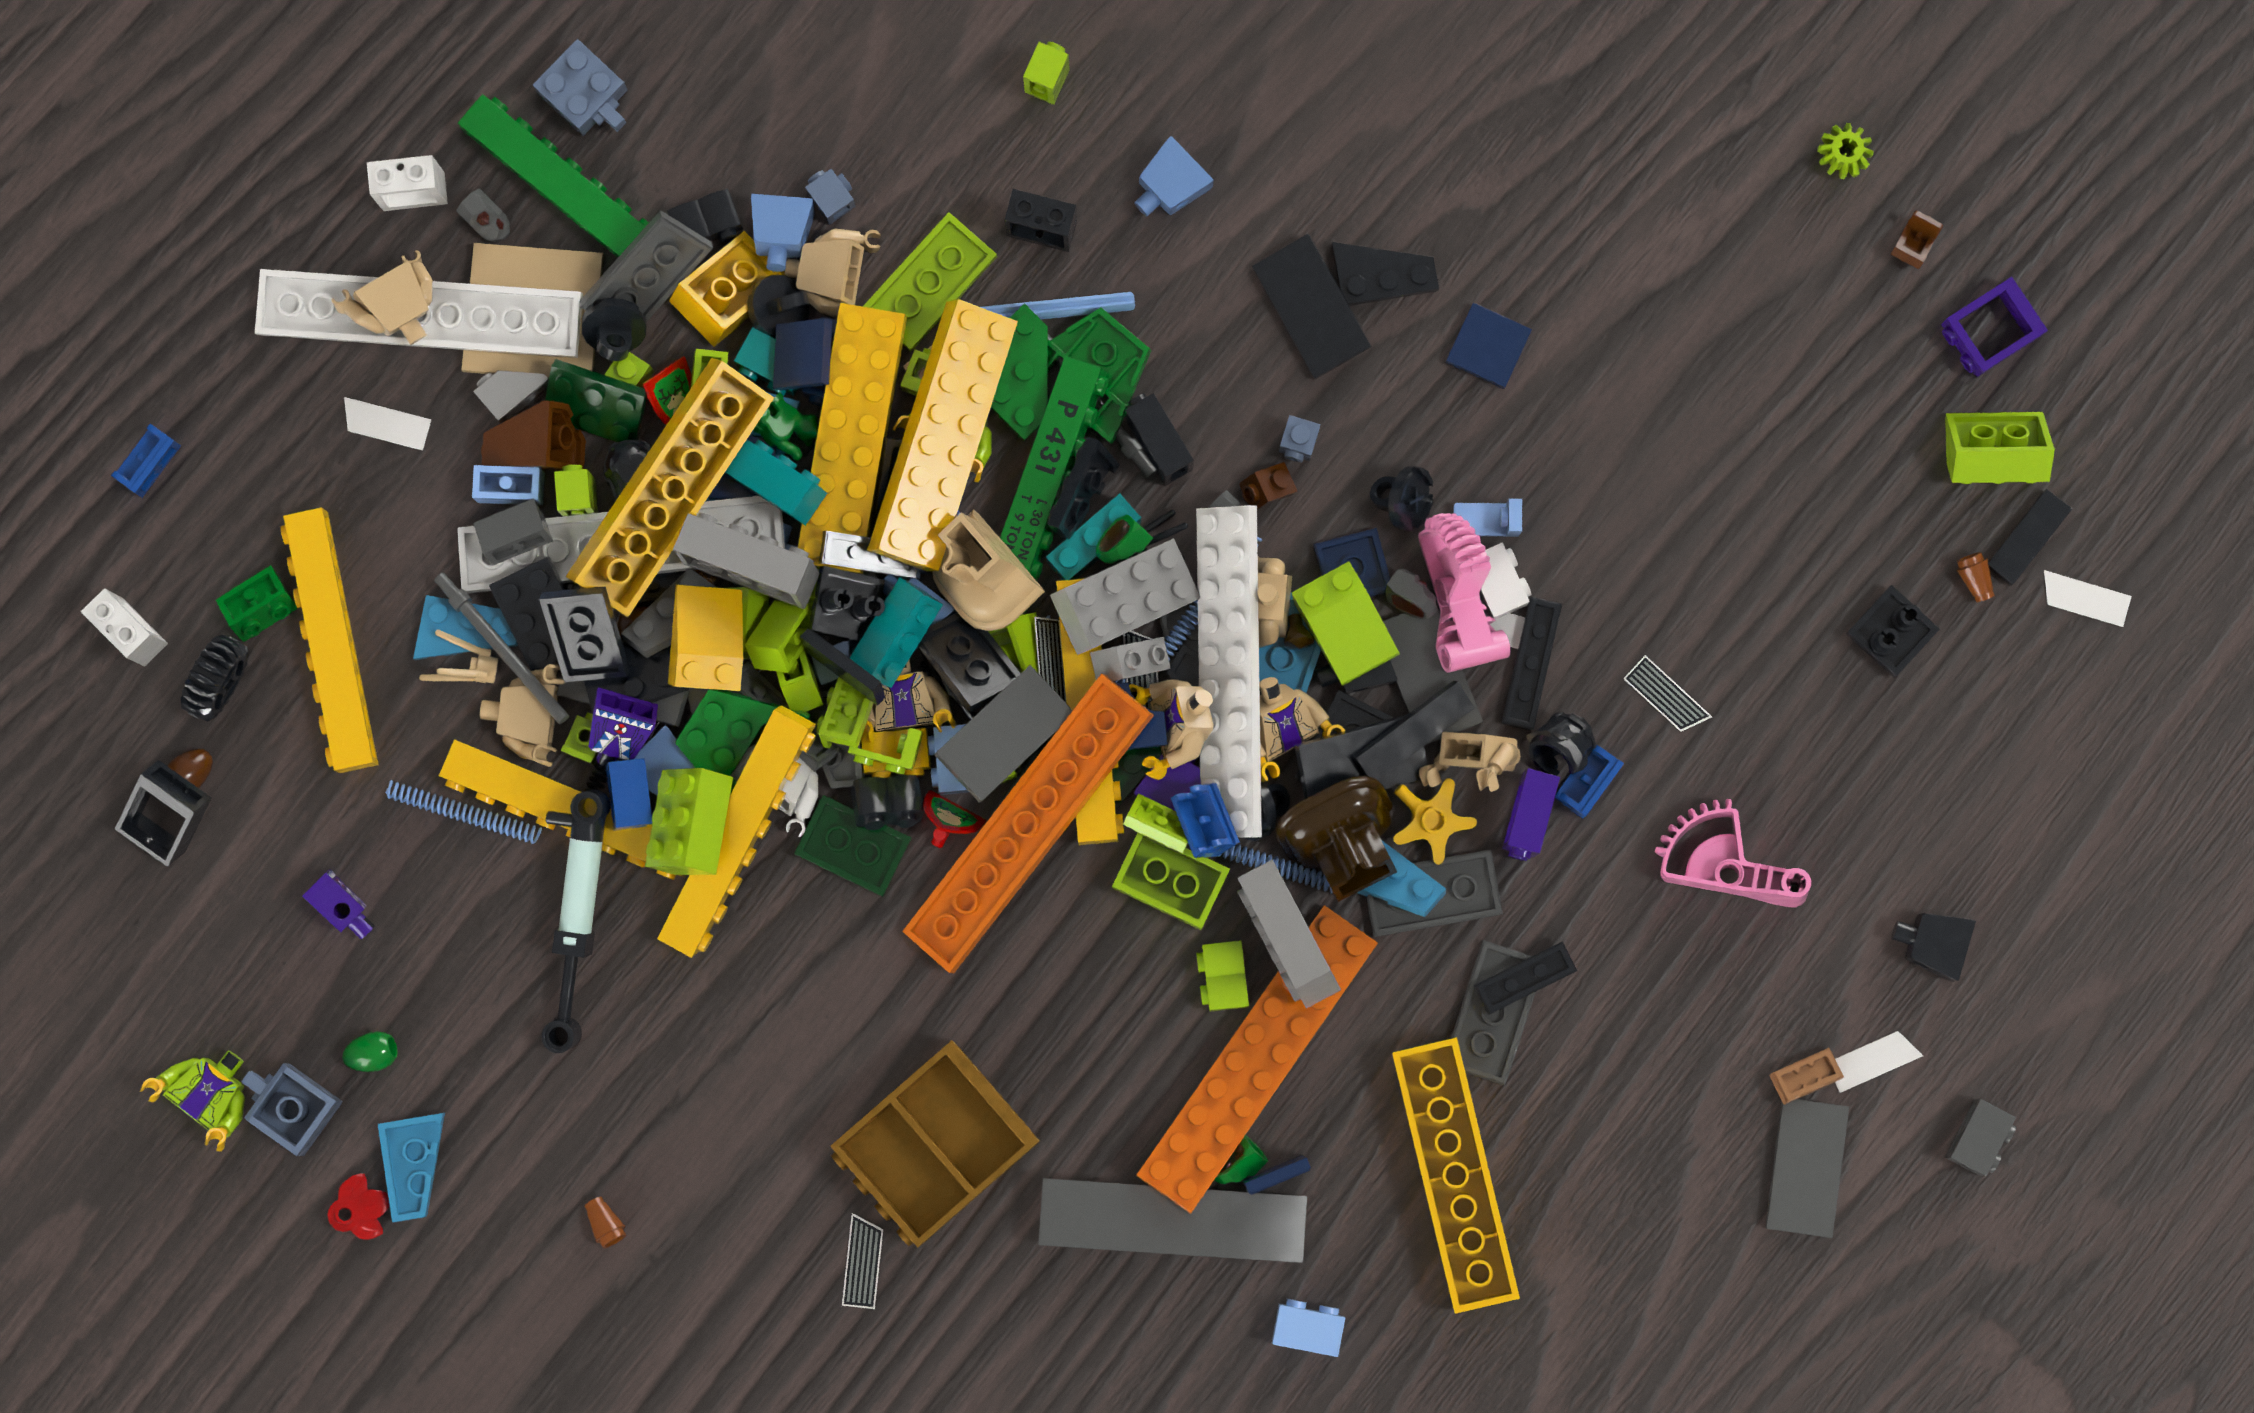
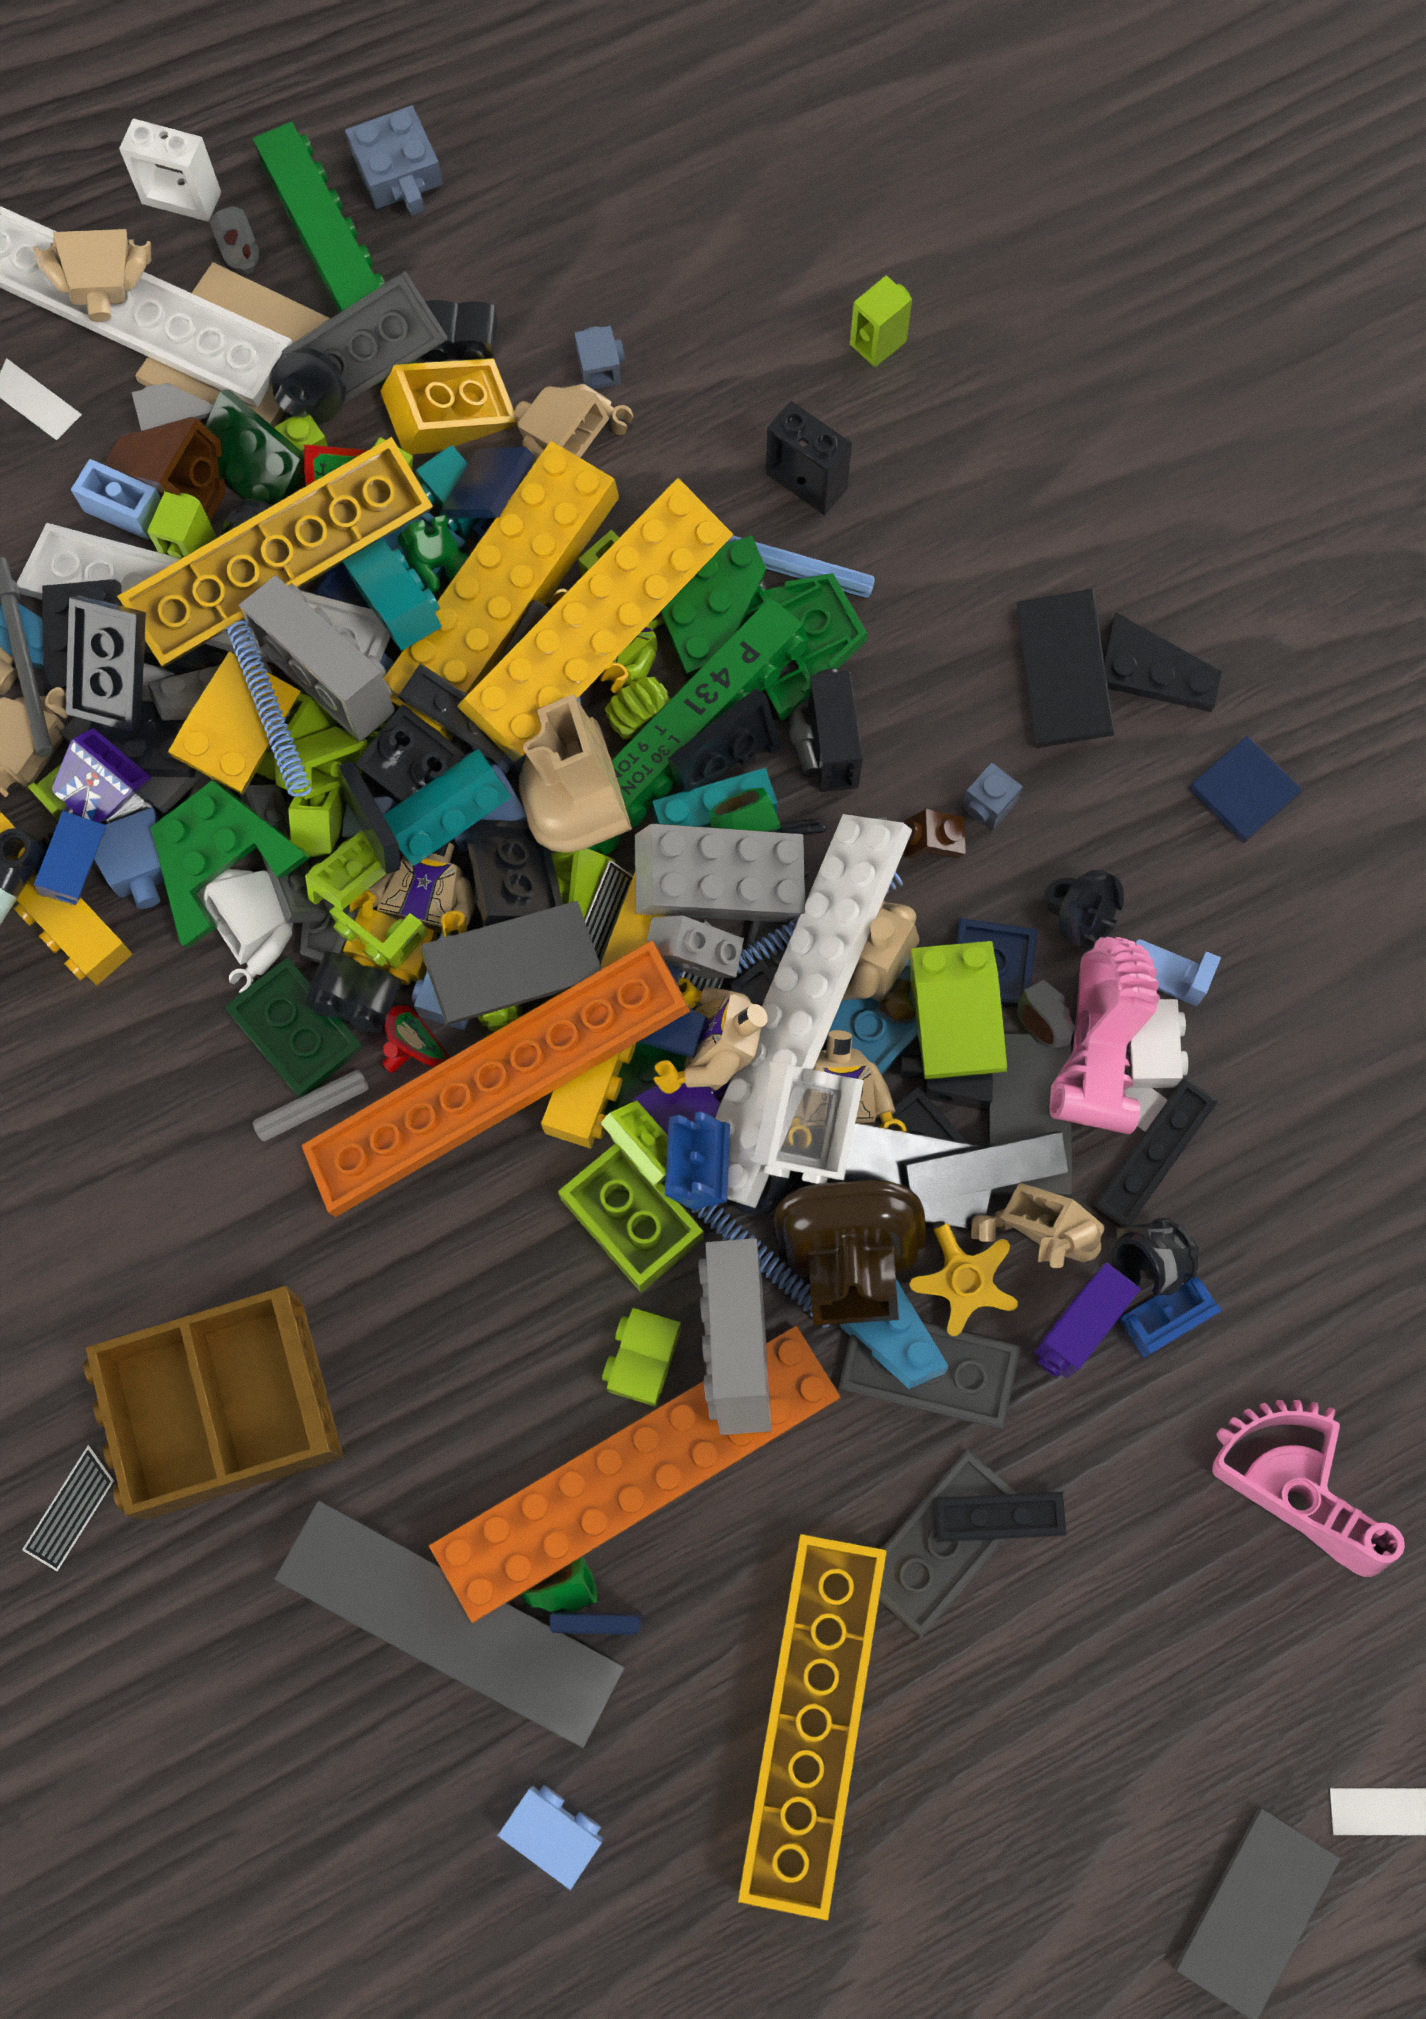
camera: 25 degrees right, 10 degrees down
(512, 532) = (95, 543): dark grey hinge -> none
(688, 821) = (114, 910): lime brick -> none
(729, 620) = (269, 711): none -> light blue piece
(747, 819) = (166, 948): yellow brick -> none
(776, 302) = (486, 427): black tile -> none
(780, 227) = (531, 362): medium blue torso -> none
(893, 898) = (310, 1105): none -> light grey axle
(931, 276) = (695, 457): lime plate -> none
(999, 483) = (636, 706): none -> lime gear
(1172, 180) = (968, 482): medium blue torso -> none
(1274, 760) = (807, 1123): none -> window
(1665, 695) = (1299, 1257): sticker -> none
(1806, 1076) = (1300, 1795): medium nougat plate -> none

